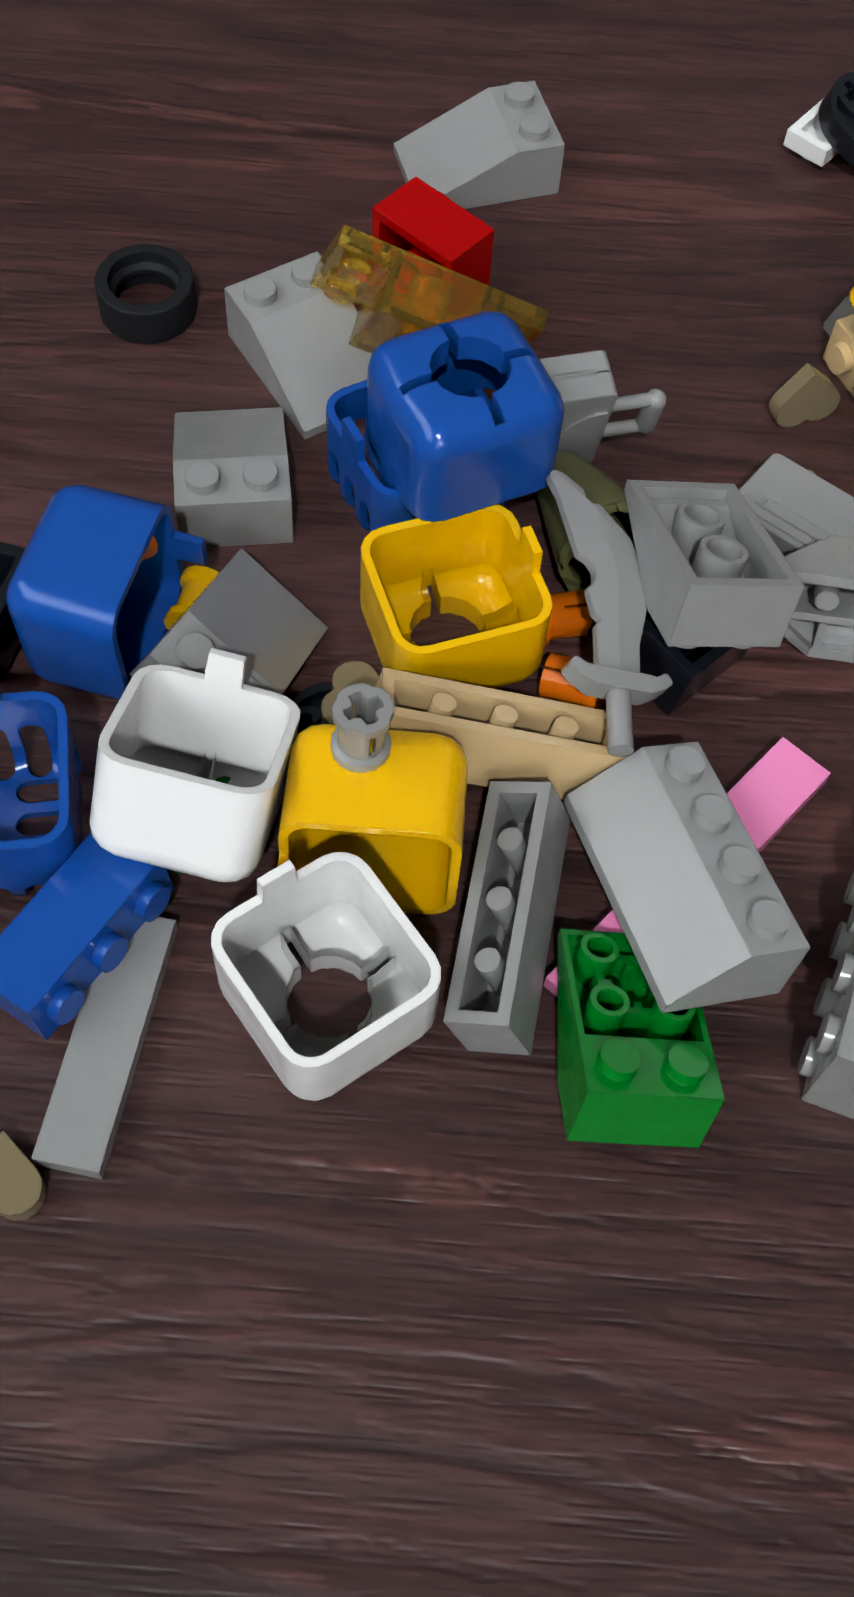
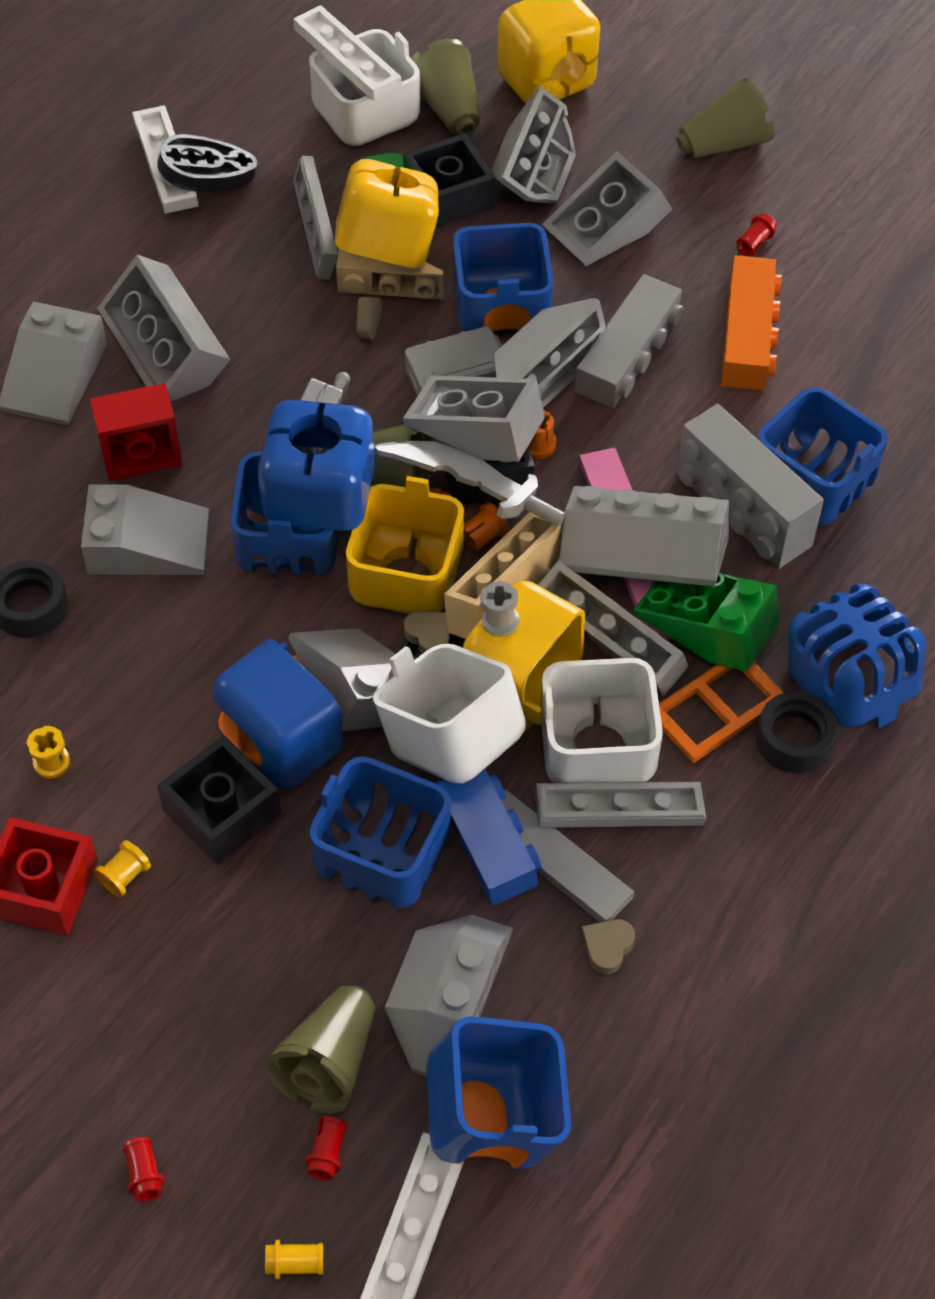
camera: 55 degrees left, 5 degrees down
(232, 477) = (211, 617): light grey slope -> none
(236, 1082) = (619, 804): none -> light grey tile
(406, 291) = (190, 457): clear yellow brick -> none
(475, 1174) = (733, 723): none -> orange window
(550, 1230) = (796, 705): none -> black tyre
(610, 221) = (162, 329): none -> light grey slope
(726, 1232) = (850, 620): none -> blue piece
(787, 680) = (544, 440): none -> orange bush

